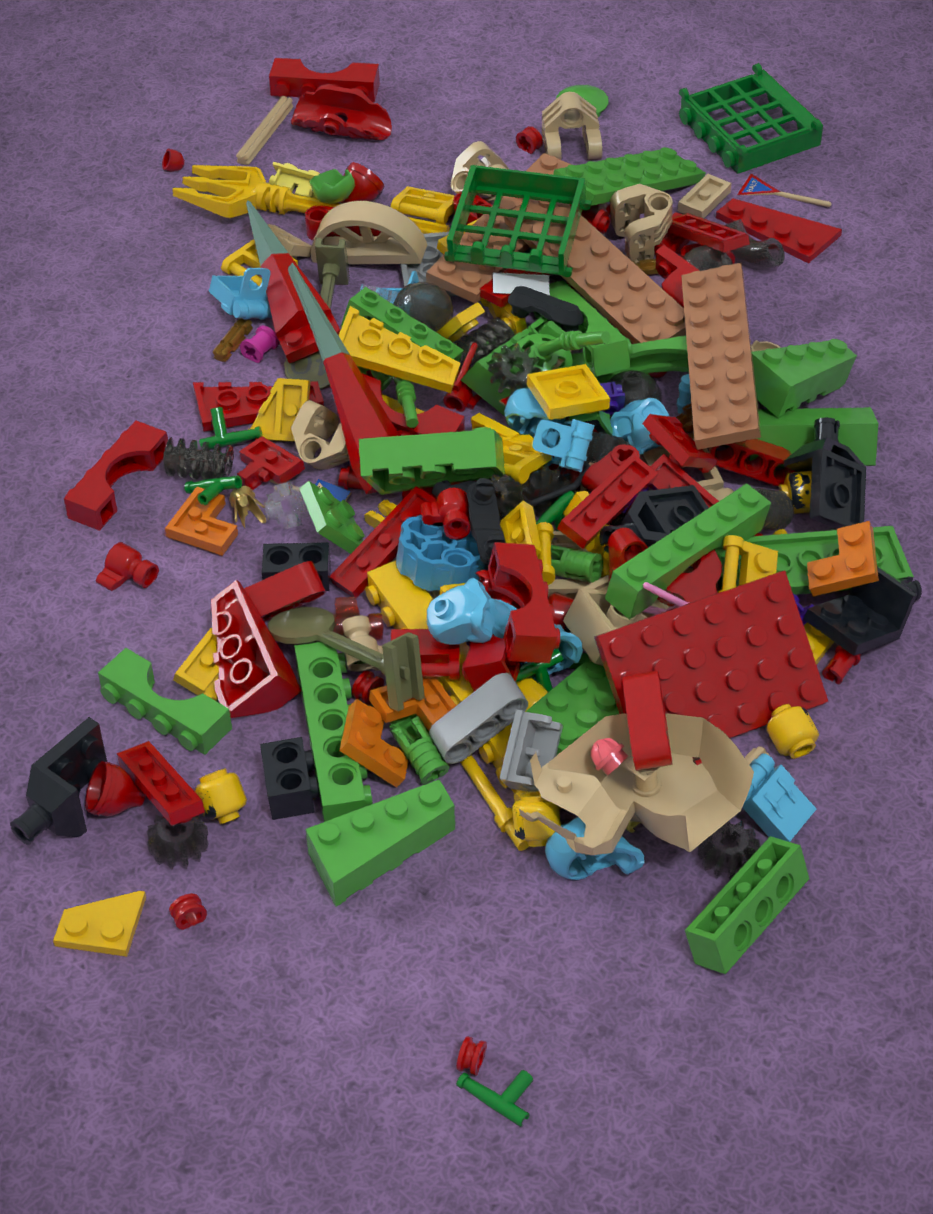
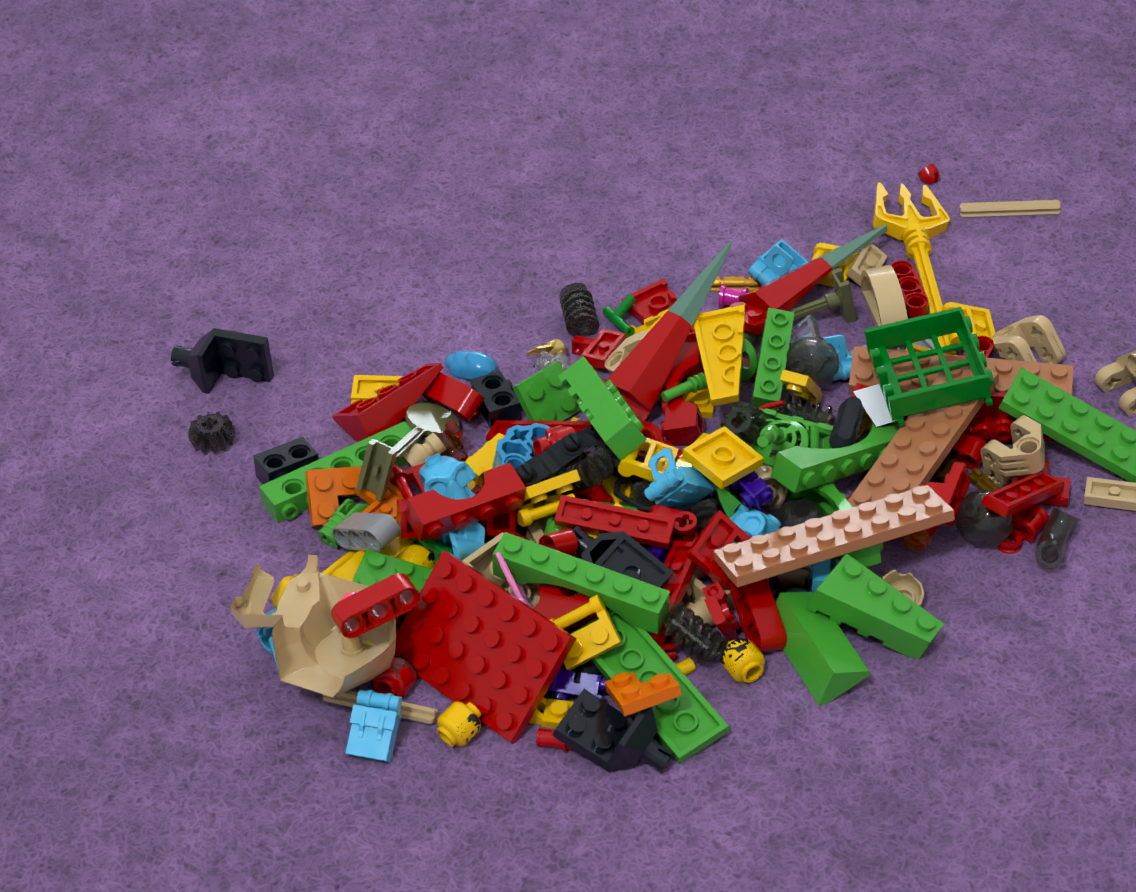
camera: 70 degrees right, 5 degrees down
(93, 499) = (511, 276): red arch -> none
(101, 925) = (131, 428): yellow wing -> none
(111, 791) = (236, 386): red helmet -> none
(124, 564) = (453, 318): red piece -> none
(161, 783) = (245, 402): red plate -> none
(187, 911) = (152, 460): red bush -> none
(195, 721) = (339, 360): bright green arch -> none
(198, 524) = (517, 334): orange plate -> none
(213, 487) = (555, 328): green piece -> none
(214, 575) = (470, 364): none -> dark azure arm
(221, 795) = (253, 437): yellow head -> none
(291, 176) = (951, 249): light yellow hinge -> none
(293, 79) = (1107, 233): red arch -> none
(321, 111) = (1057, 259): red piece -> none
(331, 186) = (935, 260): bright green hair -> none
(367, 184) = (965, 281): red helmet -> none
(378, 838) = (248, 527): bright green wedge -> none
(471, 1055) = (83, 630): red bush -> none
(503, 1103) = (56, 668): green piece -> none
(529, 139) = (1110, 356): red bush -> none
(529, 735) = (343, 558): light grey hinge -> none
(728, 849) = (322, 719): clear smoke gear -> none
(747, 905) = (253, 730): bright green brick -> none
(756, 474) = (720, 612): none -> red hinge
(797, 235) = (1107, 559): red wing -> none
(837, 476) = (748, 666): black plate -> none

